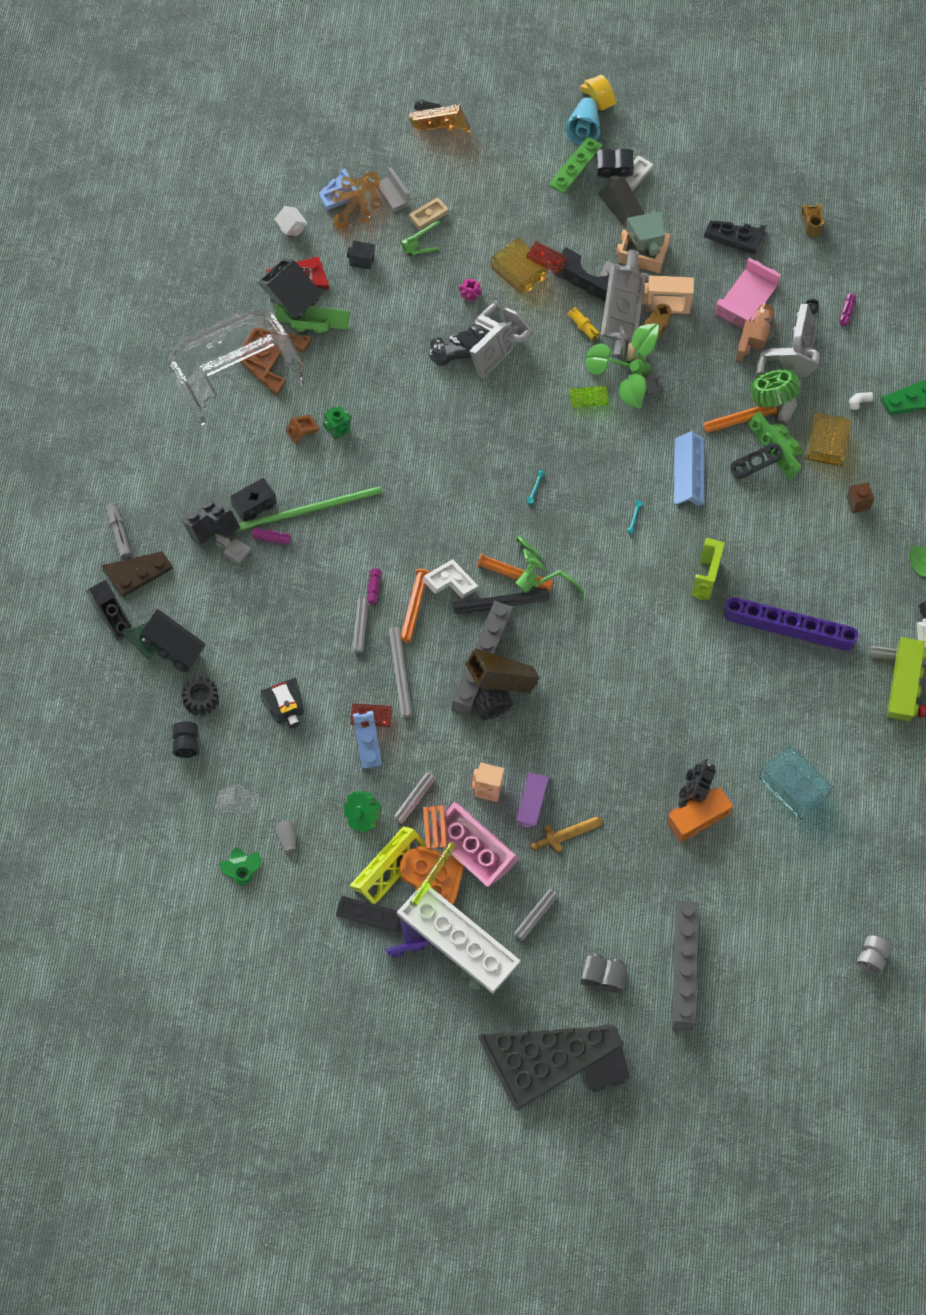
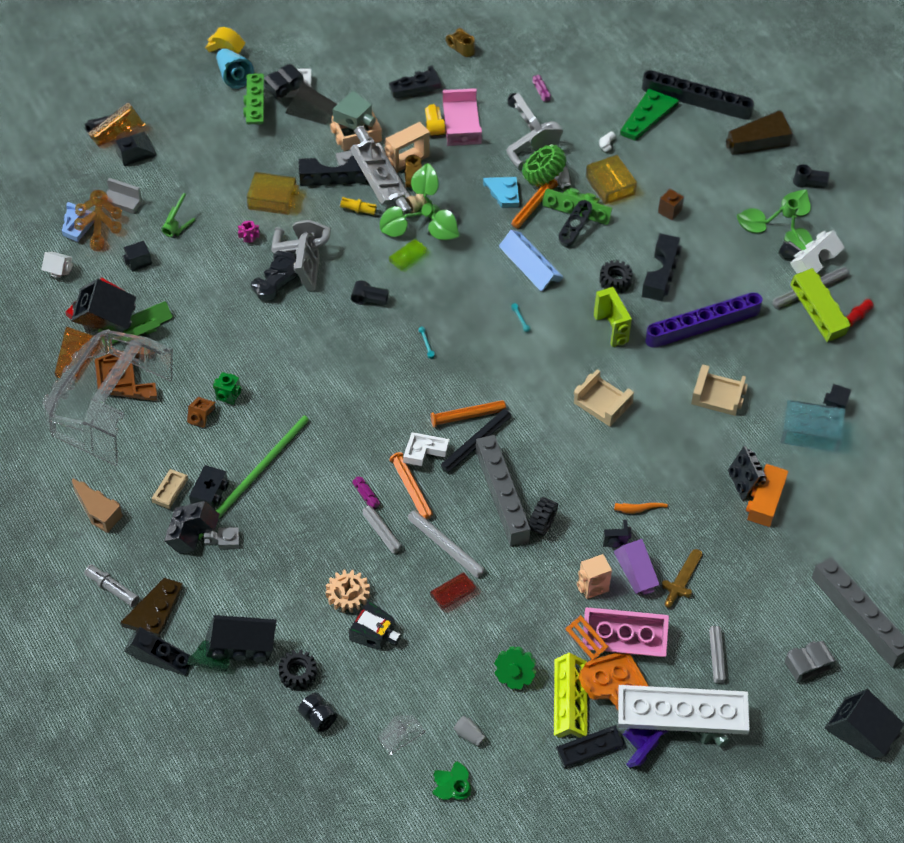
camera: 35 degrees left, 10 degrees down
(156, 458) = (99, 509): none -> medium nougat slope
(225, 479) = (169, 489): none -> tan plate
(251, 300) = (72, 342): none -> clear orange wing
(271, 536) = (247, 508): magenta axle -> none
(290, 654) = (354, 596): none -> light nougat gear
(367, 741) = (468, 611): medium blue plate -> none
(414, 798) = (543, 631): light grey axle -> none
(428, 213) = (165, 197): tan plate -> none
(432, 874) = (620, 674): clear neon green bar -> none
(440, 149) = (134, 148): none -> black slope
(501, 673) = (532, 486): dark brown slope -> none
(520, 409) = (365, 293): none -> black piece
(529, 578) = (486, 407): bright green plant -> none
(540, 763) = (617, 537): none -> black bracket
(541, 1060) = (832, 757): pearl dark grey wing -> none
(547, 257) = (291, 172): clear red plate -> none
(573, 744) = (636, 508): none -> orange animal
(638, 635) = (602, 398): none -> tan panel
(718, 285) = (434, 122): none -> yellow piece
(725, 389) = (503, 190): none -> medium azure wing
(743, 696) = (718, 392): none -> tan panel
(747, 543) = (616, 269): none -> black tyre
(757, 331) = (491, 138): nougat plate -> none
(780, 563) = (657, 281): none -> black arch
(841, 774) = (837, 397): none -> black brick

